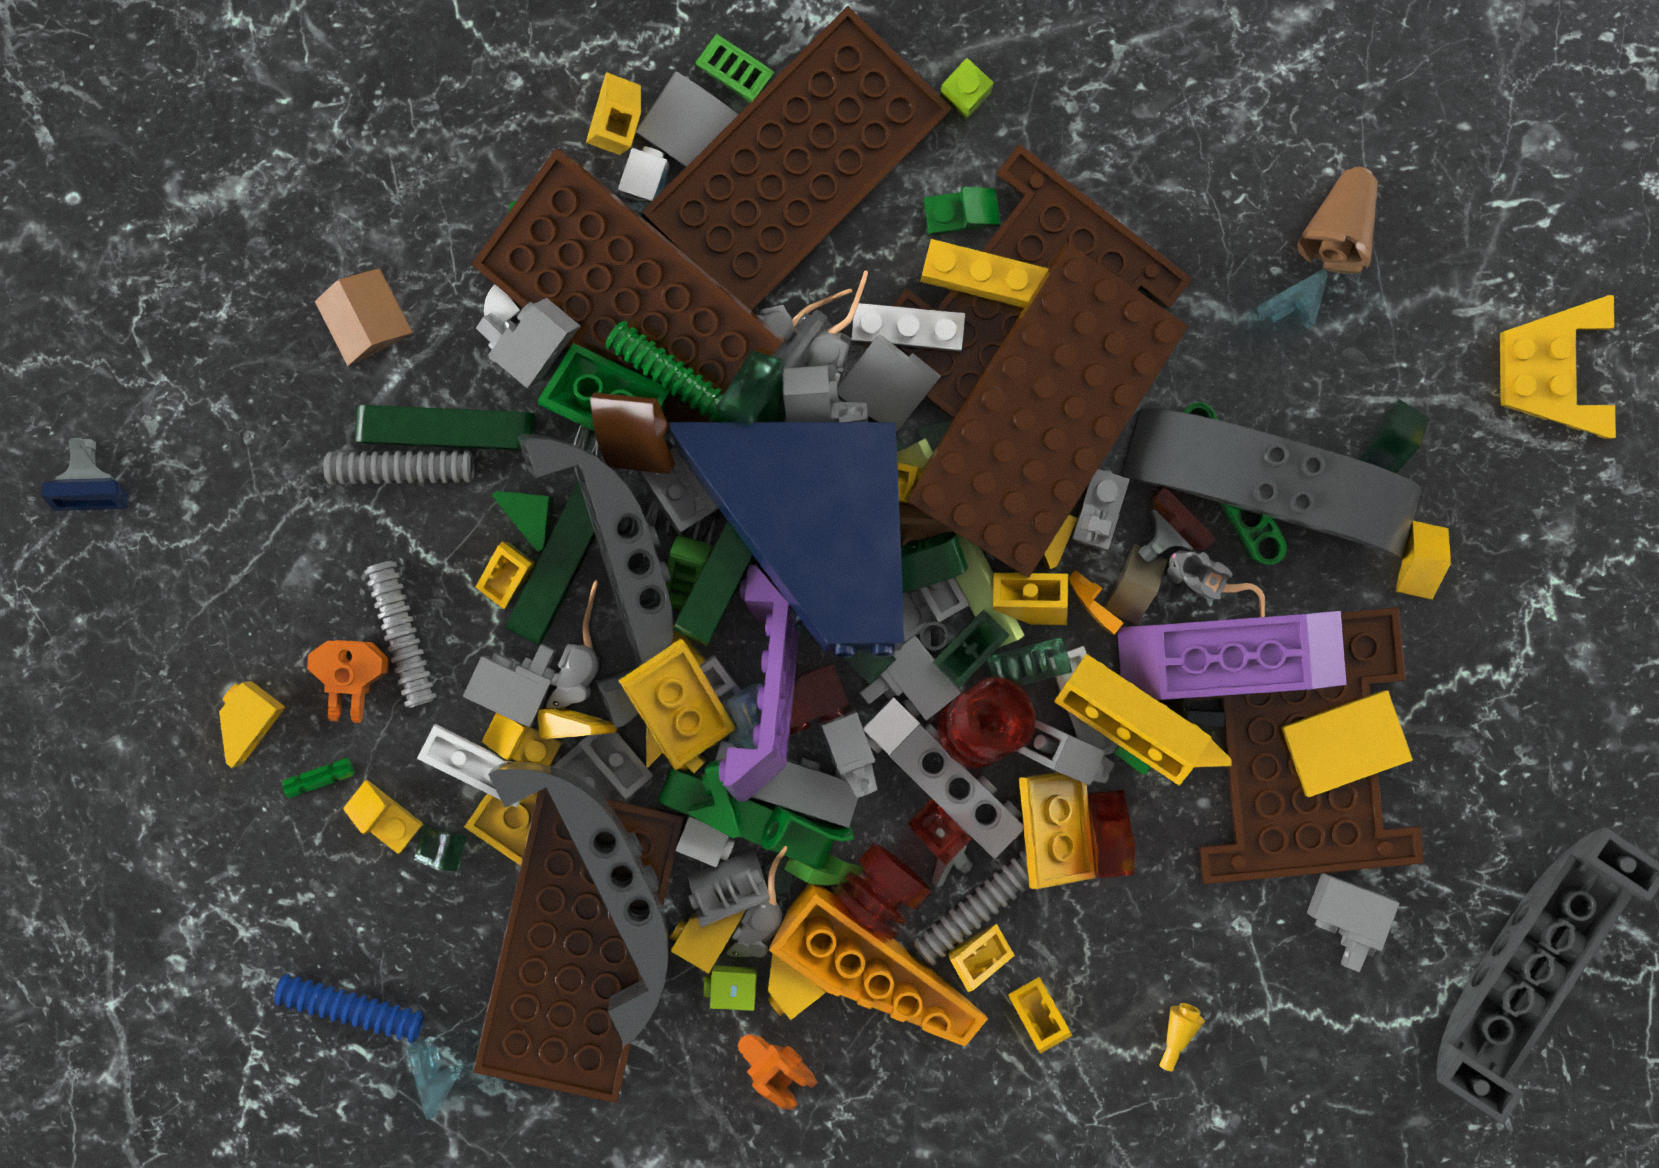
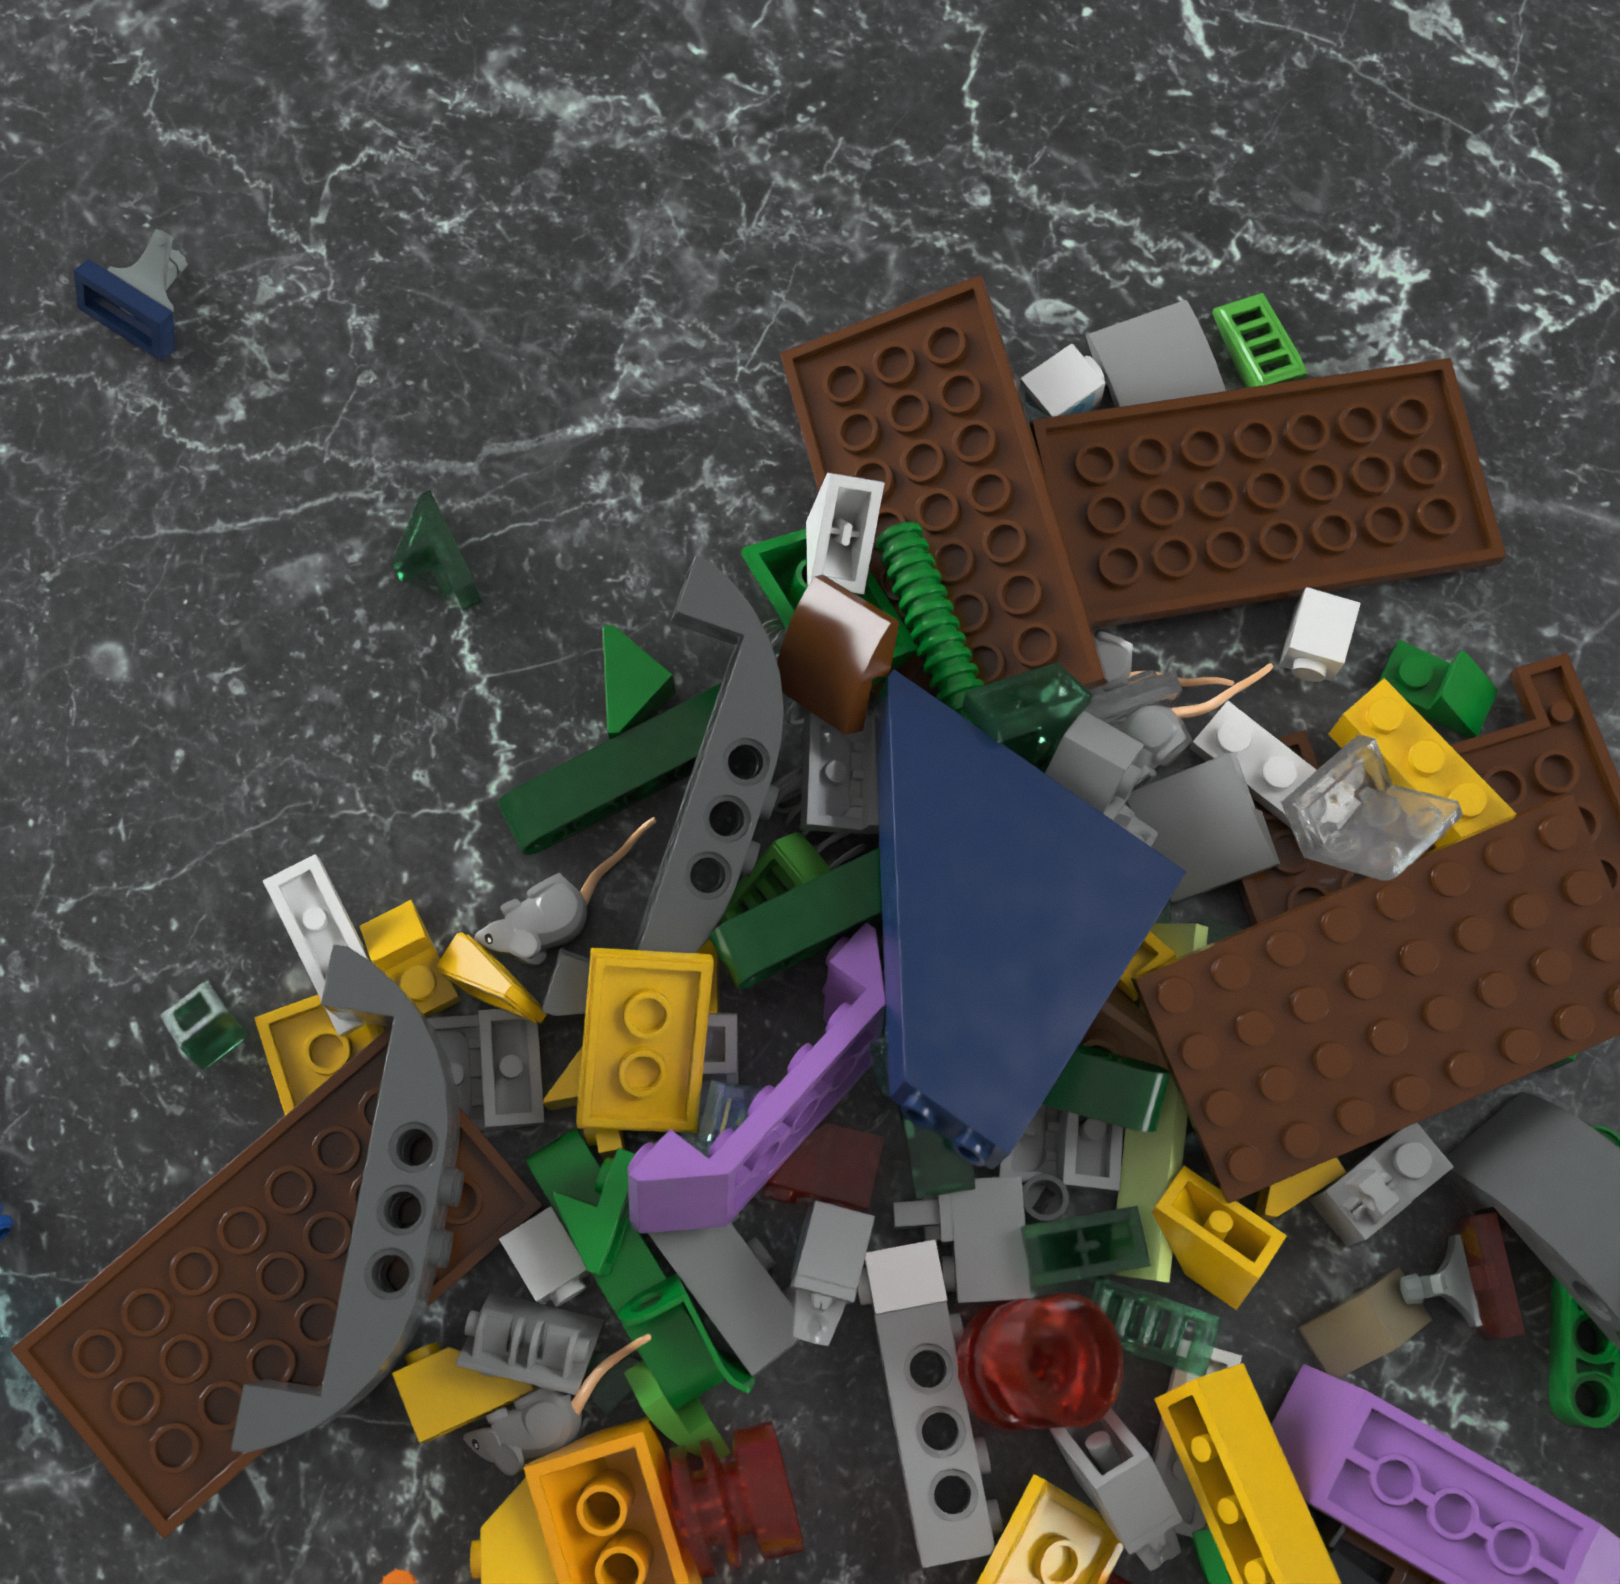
camera: 35 degrees right, 15 degrees down
(246, 720) = (94, 696): yellow slope -> none
(318, 778) = (125, 827): green axle -> none
(352, 677) = (266, 716): orange hinge -> none
(360, 509) = (430, 546): none -> clear green slope
(363, 315) = (606, 328): medium nougat slope -> none
(382, 816) = (164, 934): yellow slope -> none
(398, 467) = (516, 525): light grey piece -> none
(400, 633) = (363, 722): light grey piece -> none
(442, 427) = (597, 509): dark green beam -> none
(500, 304) = (774, 428): white tile -> none
(505, 574) = (546, 735): yellow slope -> none
(513, 691) = (448, 888): light grey hinge -> none
(532, 344) = (778, 485): light grey hinge -> none
(585, 356) = (843, 530): none -> white slope
(615, 115) = (1074, 301): yellow slope -> none
(731, 987) = (435, 1489): lime brick -> none
(879, 226) = (1319, 635): none -> white brick
(944, 839) = (873, 1491): clear red piece -> none
(966, 88) = (1541, 545): lime brick -> none
(969, 325) = (1360, 820): none -> clear bracket
(1086, 593) = (1289, 1318): light orange slope -> none
(1207, 576) = (1474, 1377): light grey animal -> none

